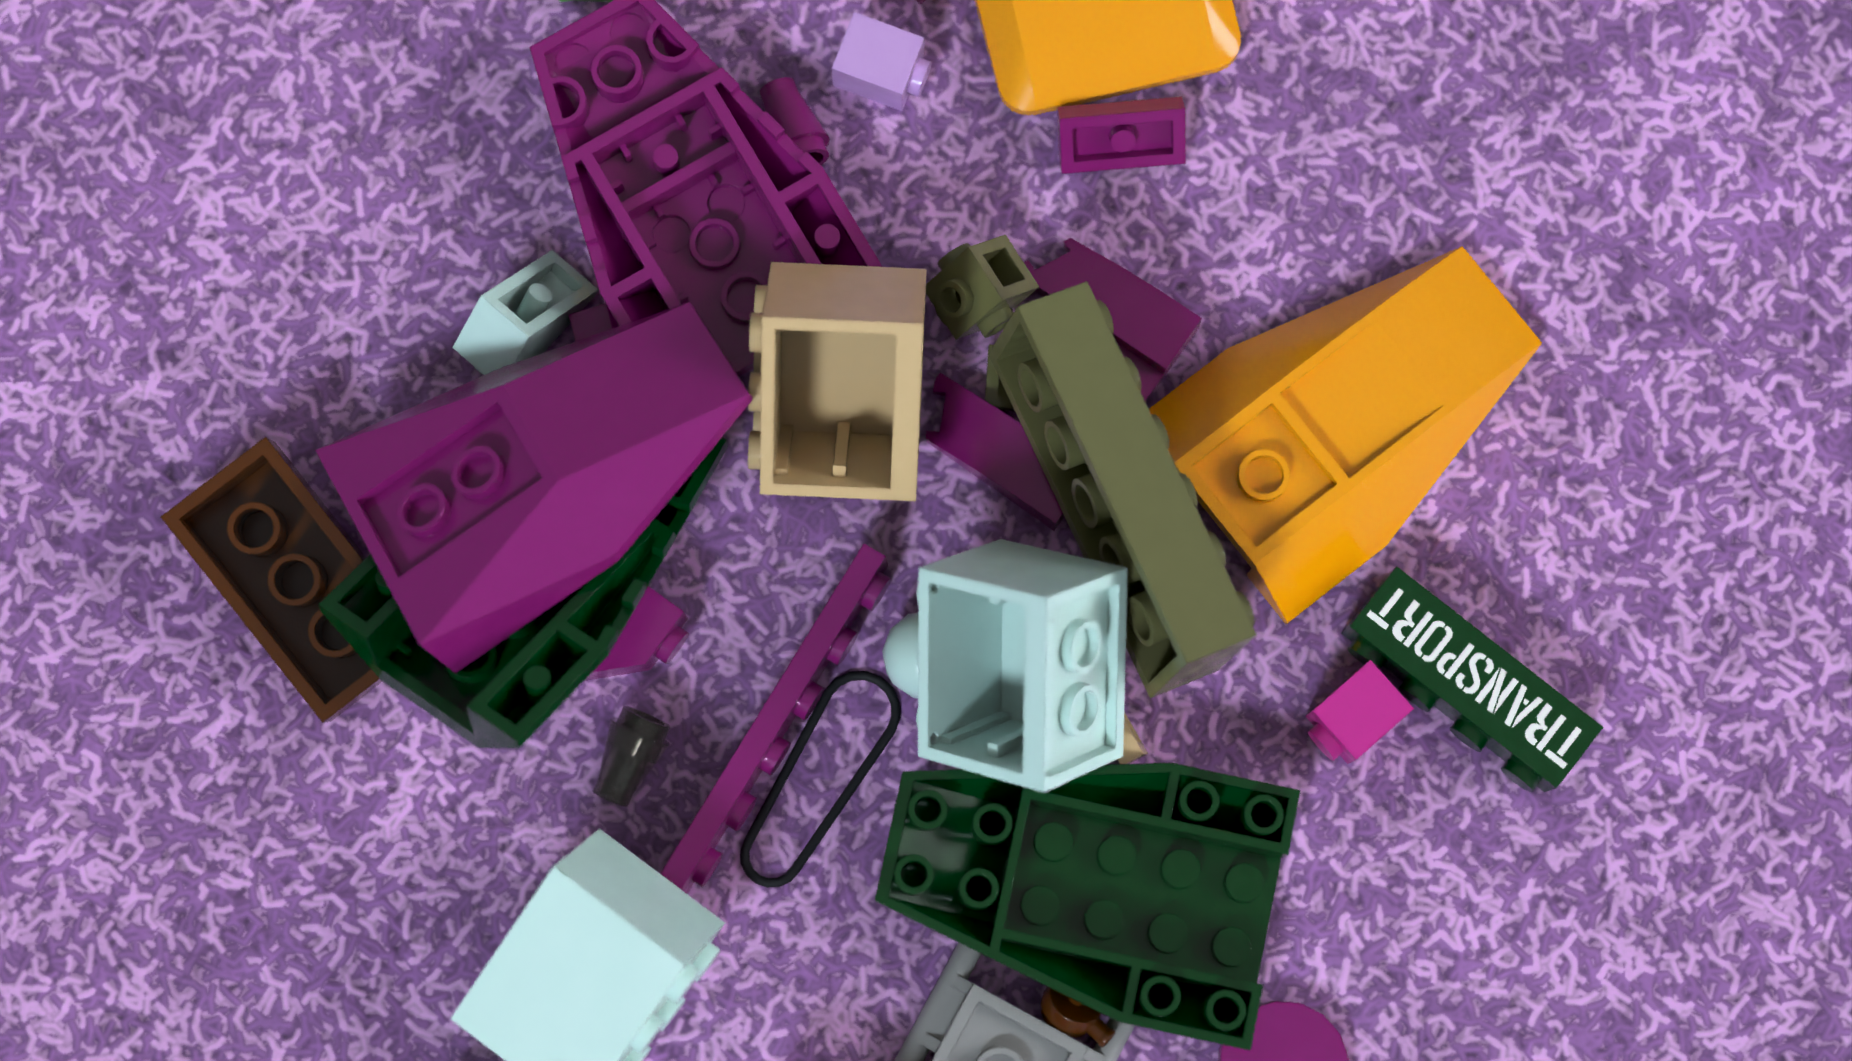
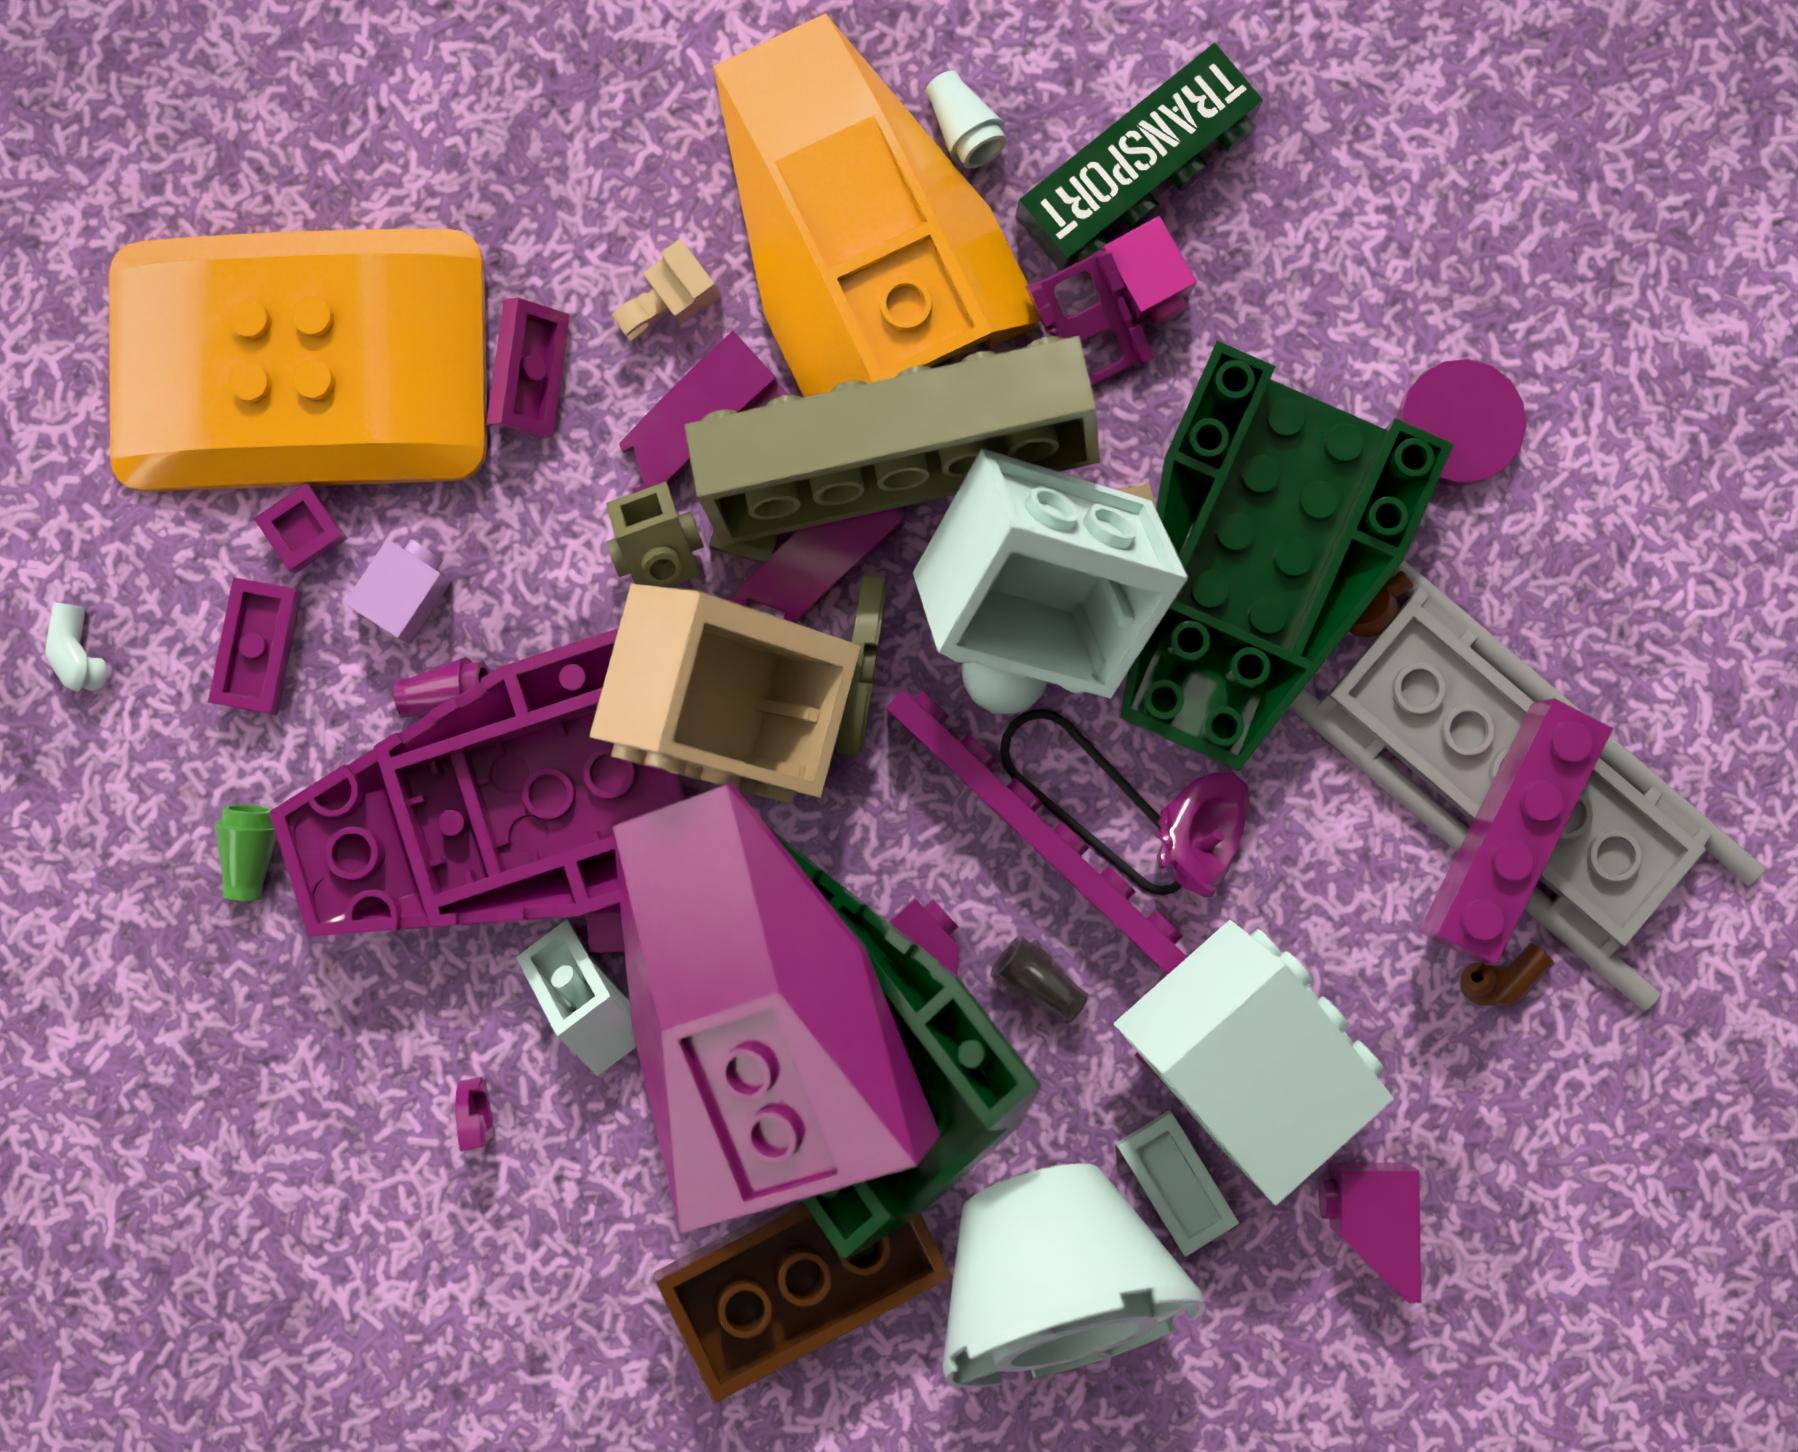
camera: 85 degrees left, 5 degrees up
(338, 822) = (1057, 1278): none -> light aqua cone
(393, 241) = (474, 1126): none -> magenta tile
(456, 935) = (1177, 1183): none -> light aqua tile
(810, 886) = (1203, 831): none -> magenta hat
(927, 512) = (867, 634): none -> olive tile
(1235, 259) = (677, 285): none -> tan piece
(1279, 647) = (1107, 313): none -> magenta piece
(1466, 503) = (967, 123): none -> light aqua cone

